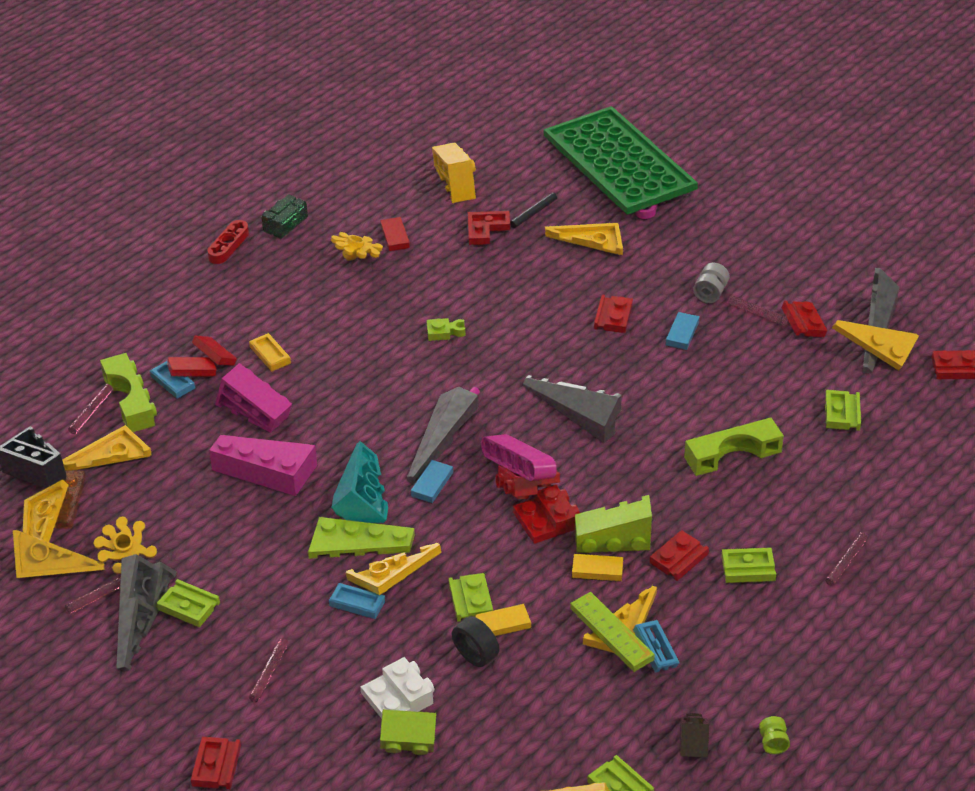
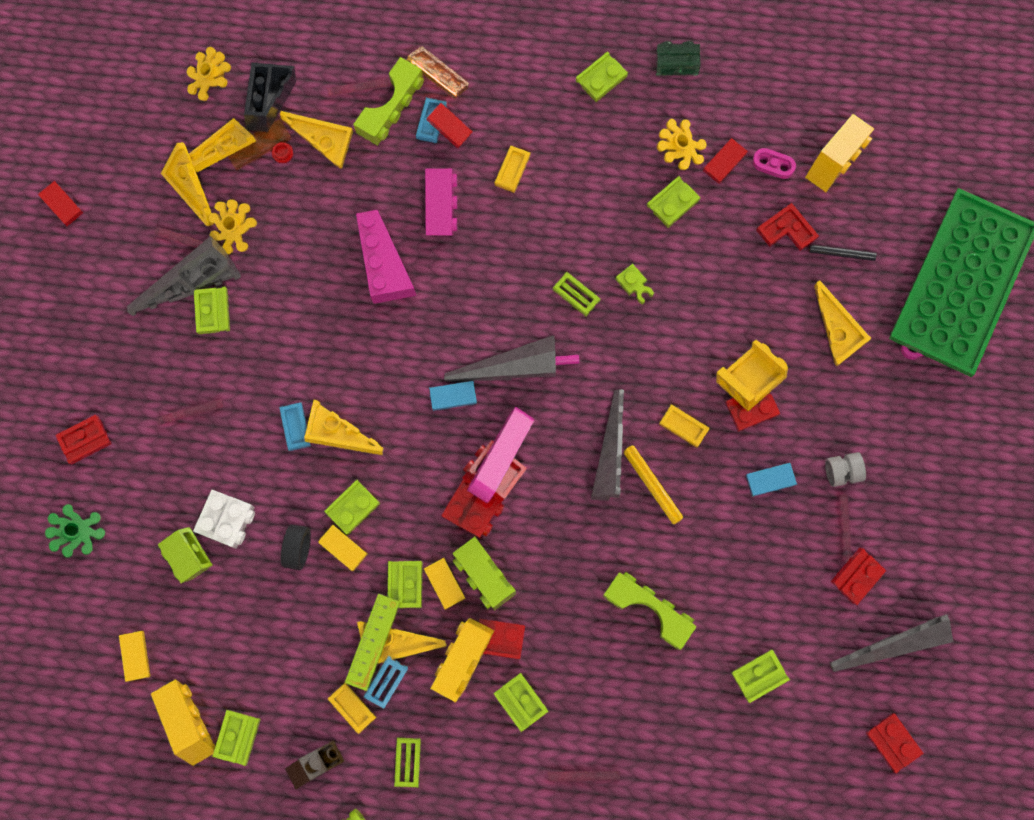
camera: 60 degrees right, 35 degrees up
(93, 484) = (282, 152): none -> red plate
(139, 351) = (438, 72): none -> clear orange plate
(214, 350) = (480, 127): red tile -> none
(220, 251) = (634, 41): red beam -> none
(249, 266) = (601, 76): none -> lime plate
(356, 537) = (354, 378): lime wing -> none
(359, 490) = (401, 351): teal wedge -> none
(398, 276) = (673, 201): none -> lime plate
(418, 366) = (590, 306): none -> lime tile
(425, 208) = (774, 162): none -> dark pink plate
(571, 585) = (405, 583): none -> lime plate
(587, 293) = (753, 375): none -> yellow panel
(592, 358) = (684, 426): none -> yellow tile
(642, 396) = (653, 484): none -> yellow axle
(660, 688) = (352, 708): none -> yellow tile
(680, 575) = (462, 659): none -> yellow wedge
(740, 674) = (407, 783): none -> lime tile
(884, 343) = (867, 670): yellow wing -> none

